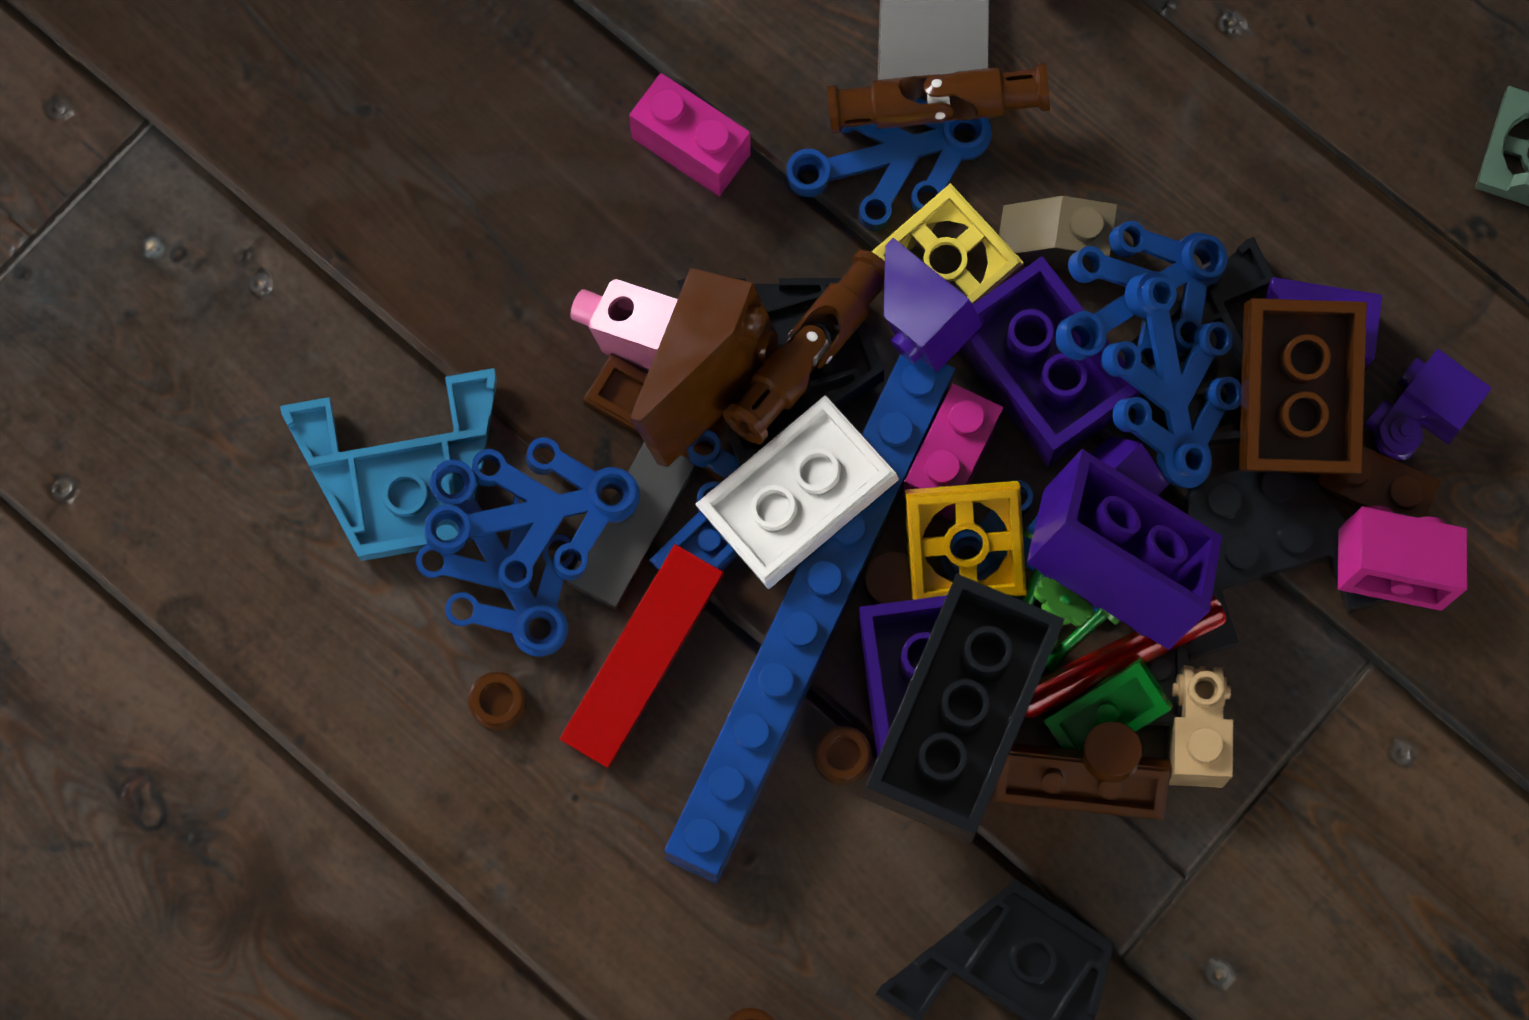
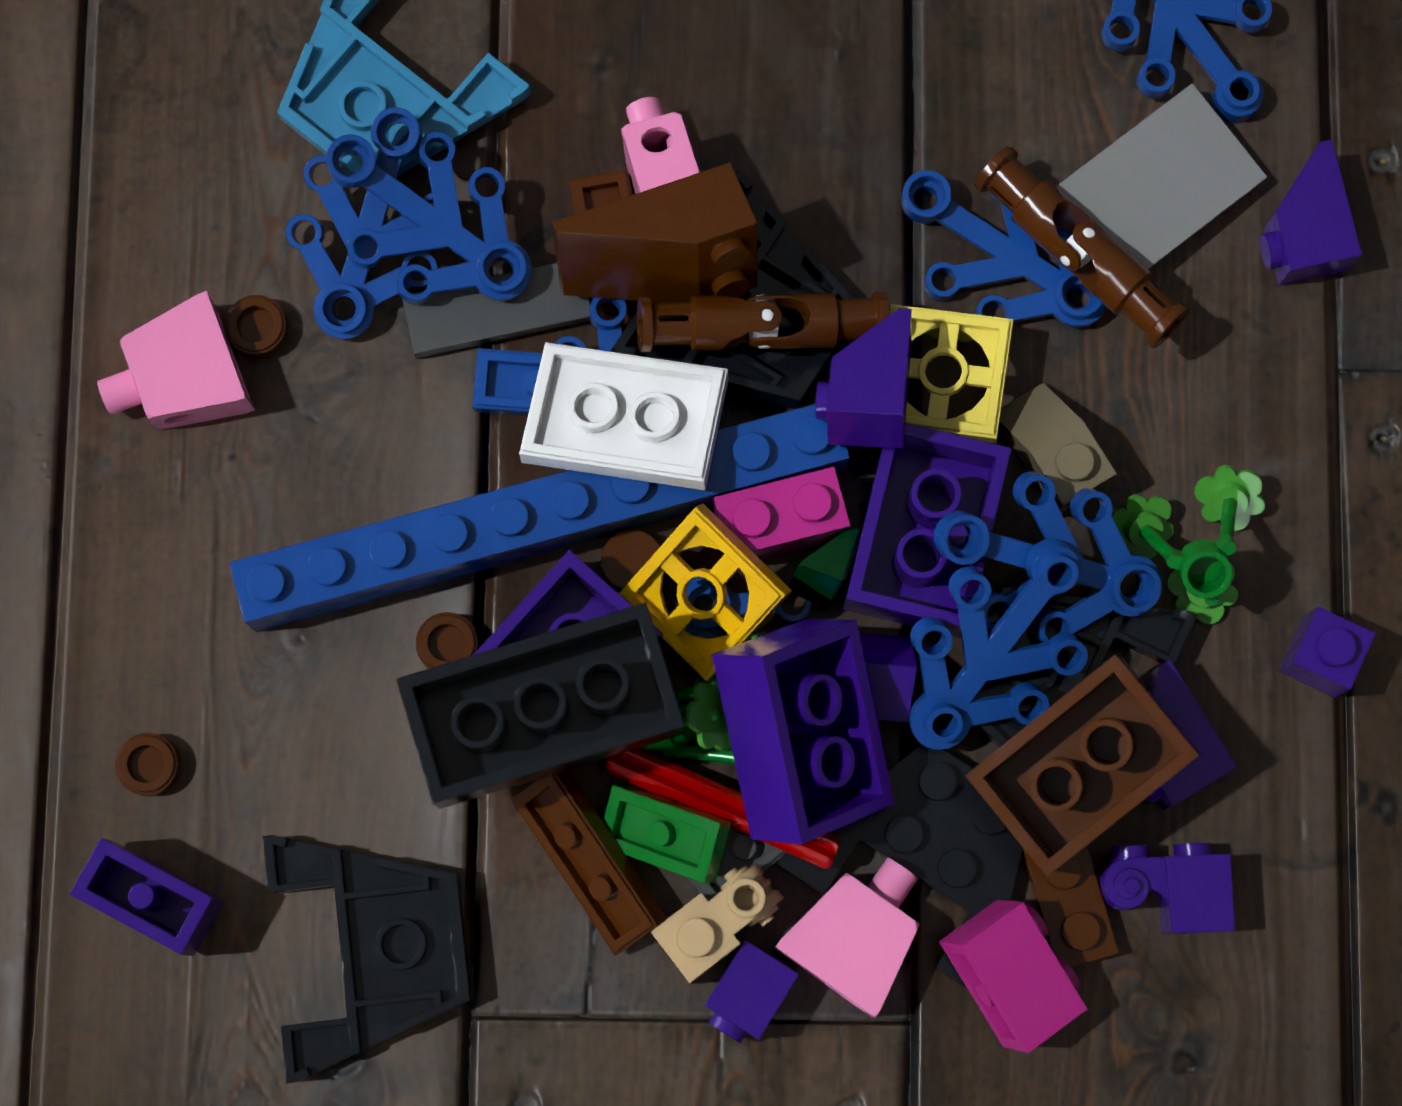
camera: 50 degrees right, 5 degrees up
(485, 777) = (179, 369): none -> bright pink torso
(641, 656) = (389, 410): red tile -> none
(690, 134) = (871, 71): dark pink brick -> none
(1018, 449) = (825, 570): none -> dark green slope
(1112, 752) = (626, 863): reddish brown tile -> none
(1232, 200) = (1202, 567): none -> bright green plant
(1267, 747) = (749, 993): none -> dark purple brick
(1287, 644) = (856, 936): none -> bright pink torso
(1349, 175) = (1326, 652): none -> dark purple brick

